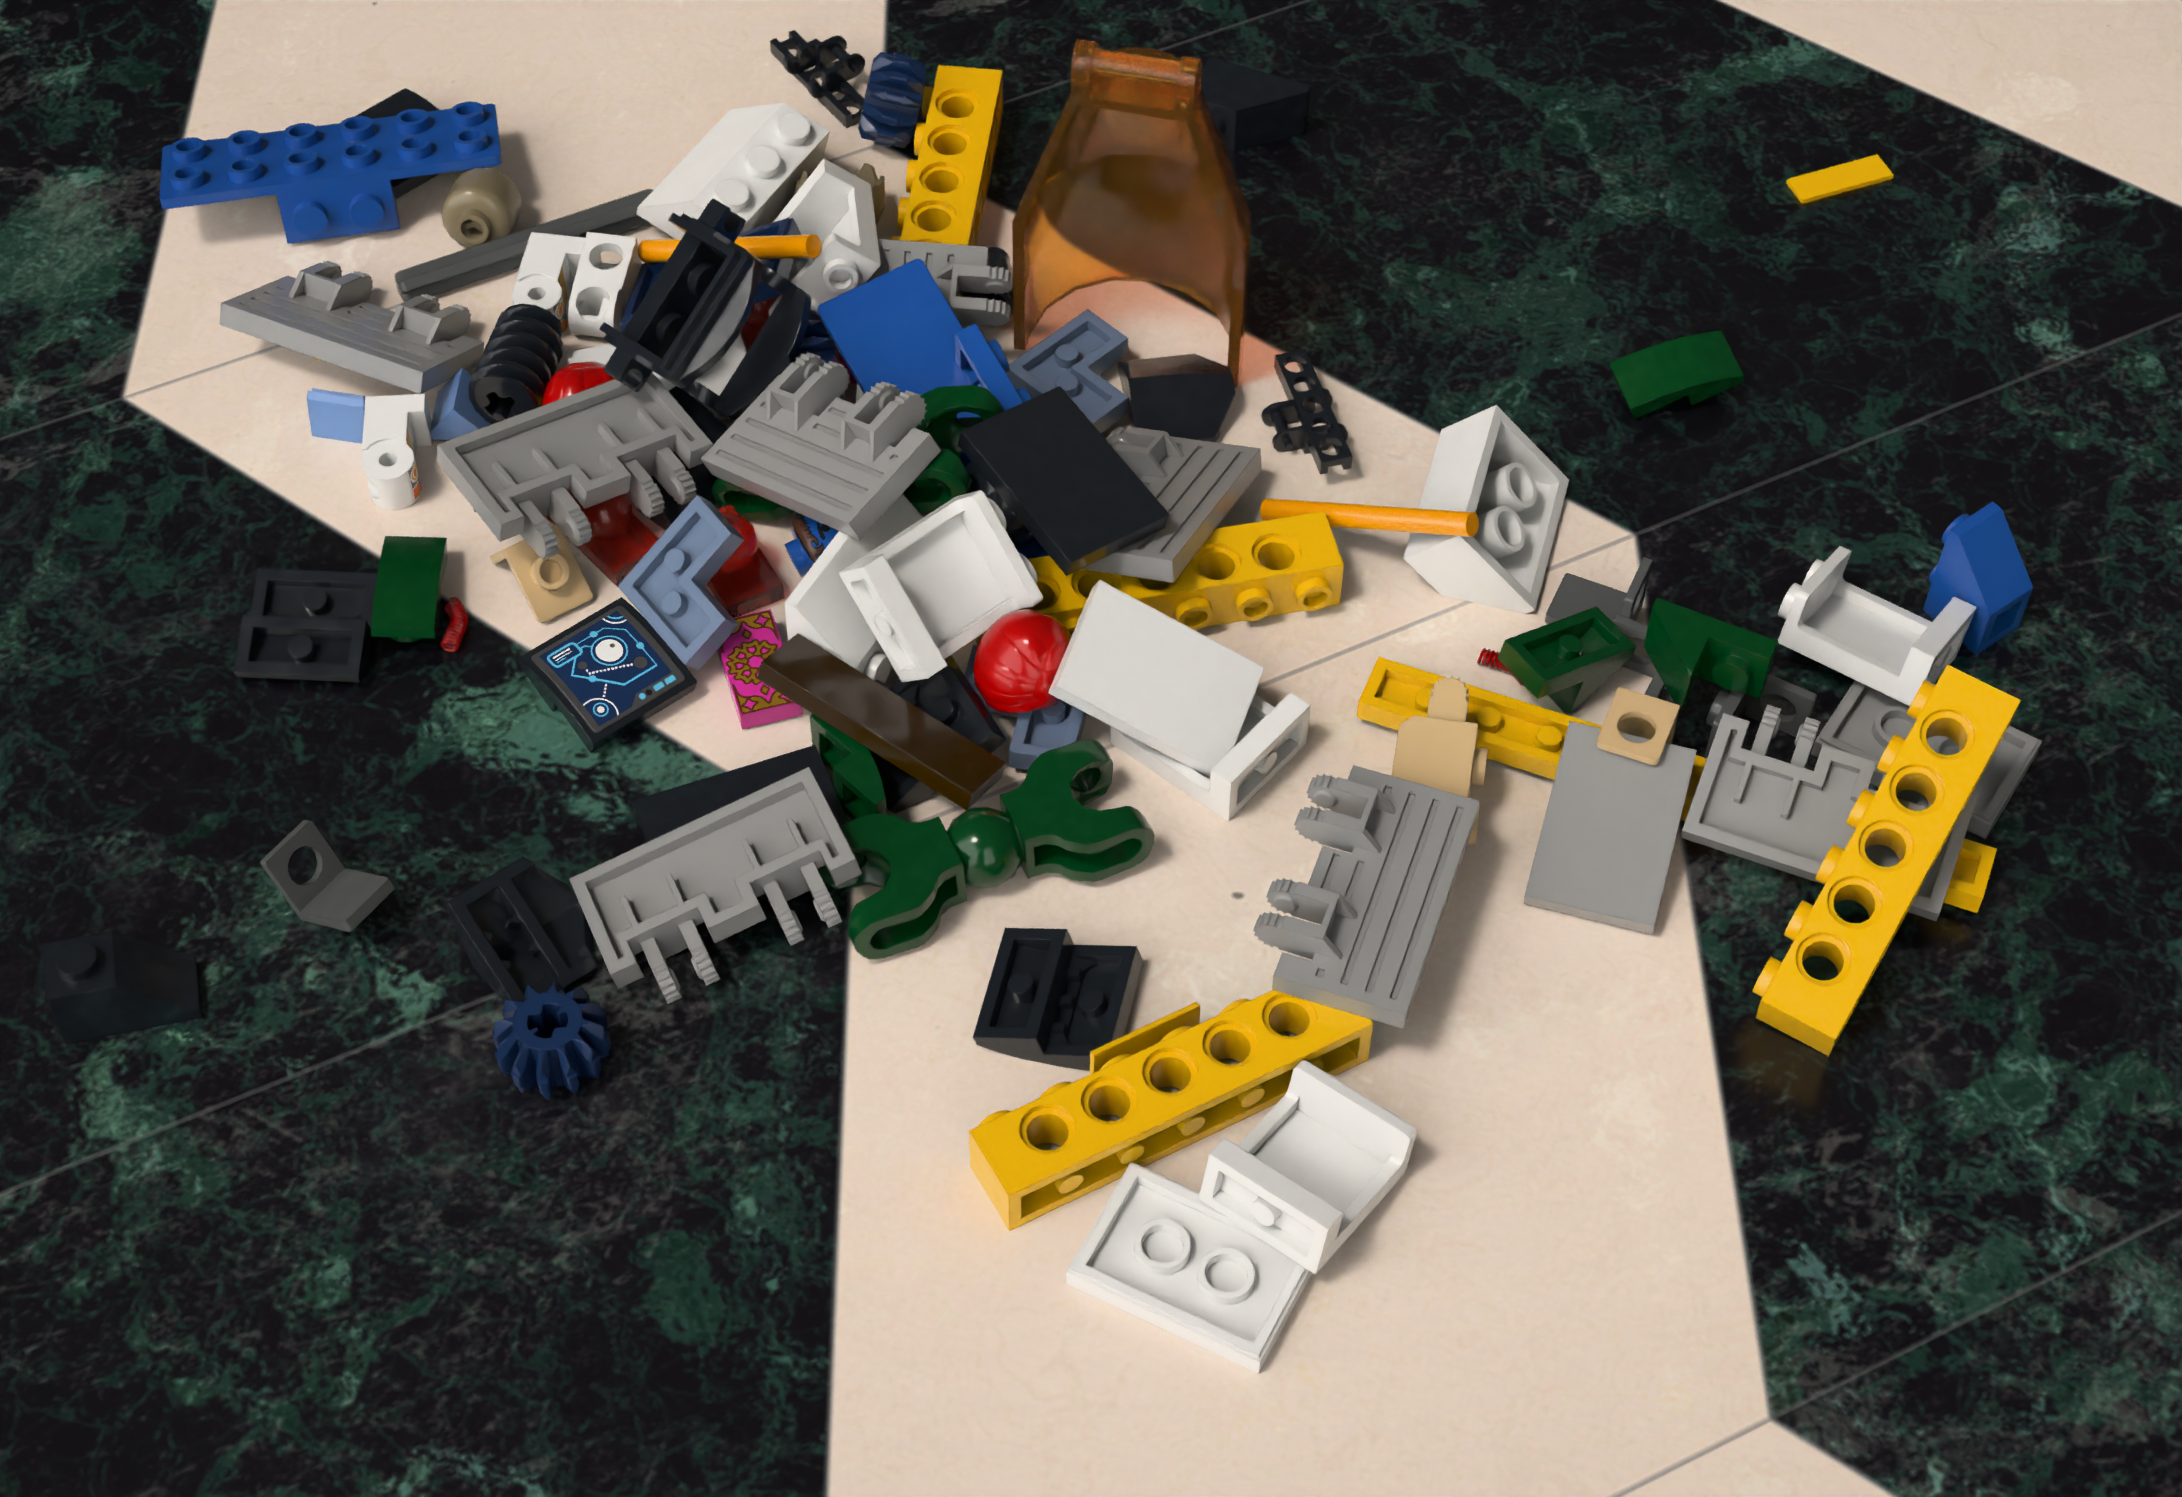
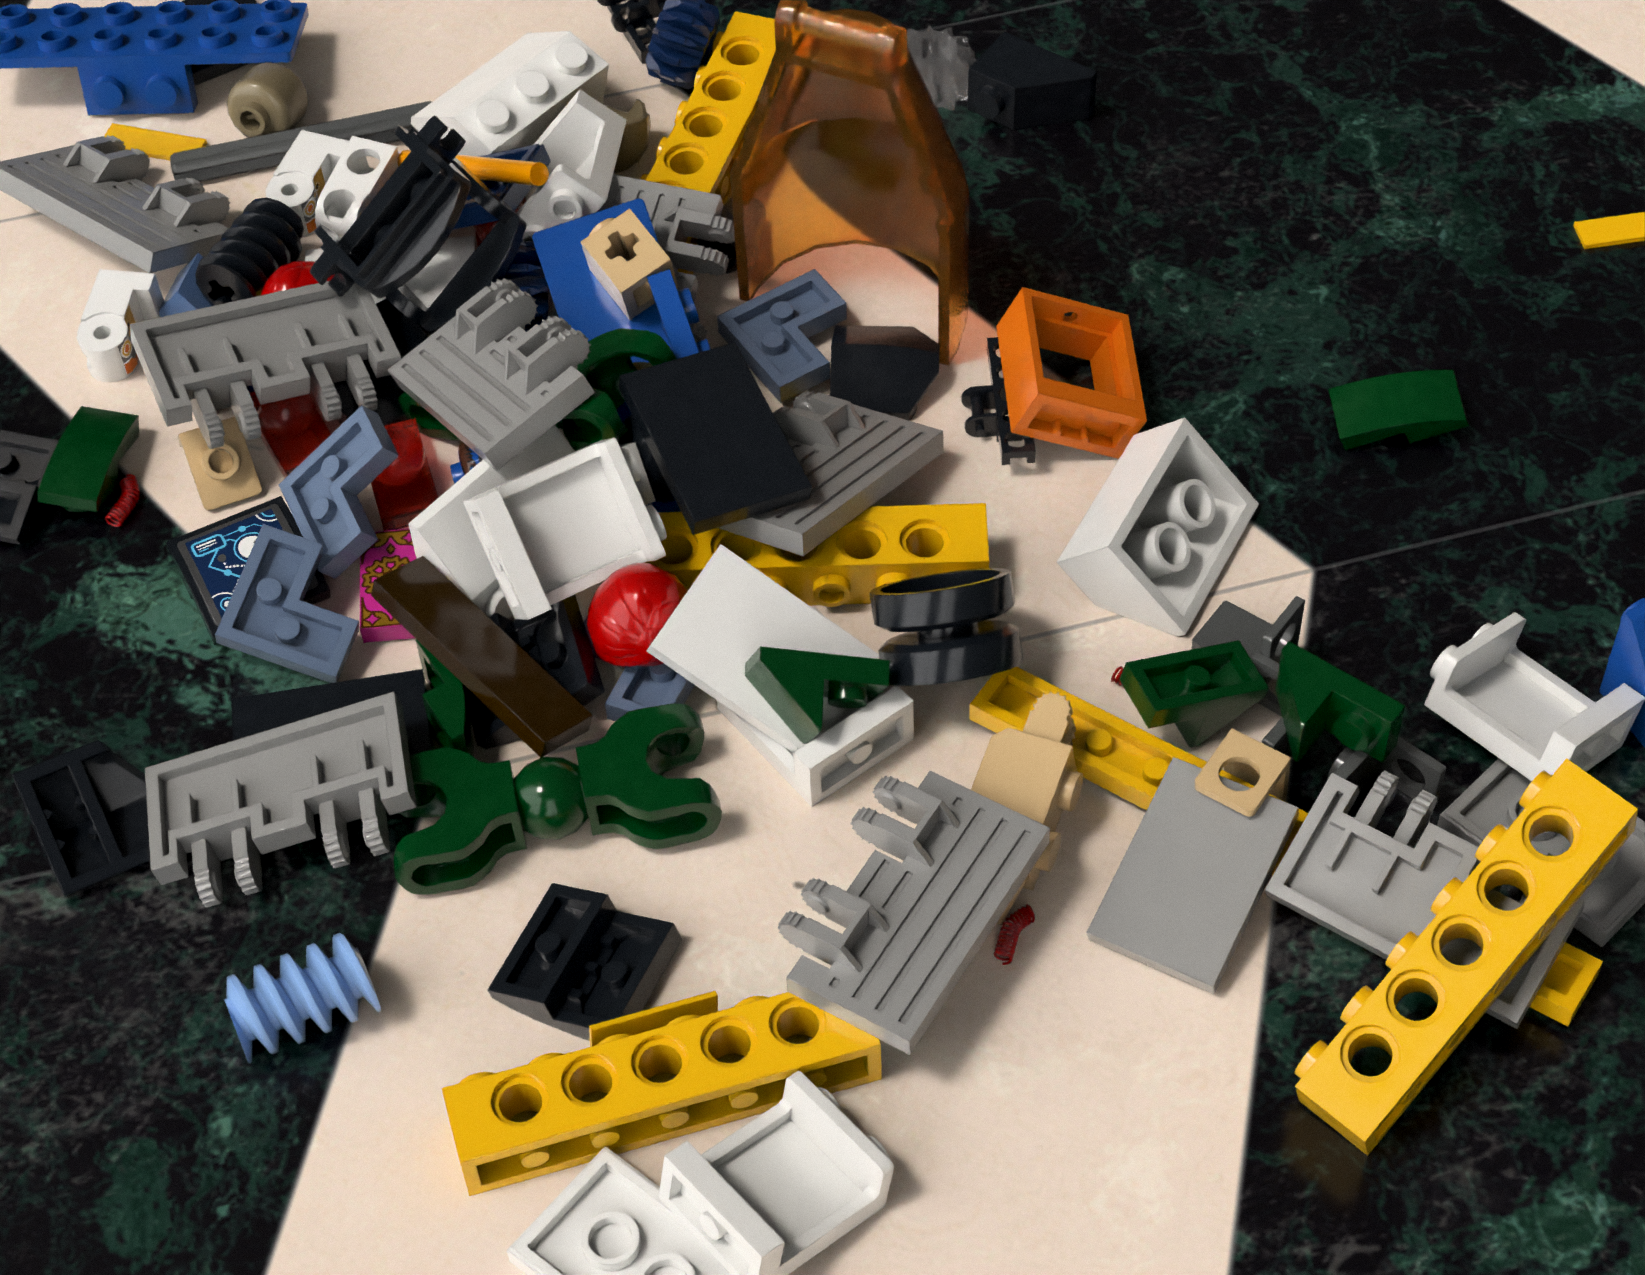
camera: 15 degrees right, 0 degrees up
(336, 415) = (71, 280): medium blue slope -> none
(376, 264) = (153, 142): none -> yellow window
(551, 1039) = (79, 926): dark blue gear -> none
(654, 719) = (272, 619): none -> sand blue plate
(794, 1066) = (299, 995): none -> light blue piece
(922, 321) = (625, 281): none -> tan brick
(1210, 702) = (798, 680): none -> dark green slope
(1325, 630) = (947, 626): none -> black wheel
(1377, 517) = (1036, 517): light orange bar -> none
(1400, 415) = (1062, 412): none -> orange window
(1461, 893) = (1013, 929): none -> red leg

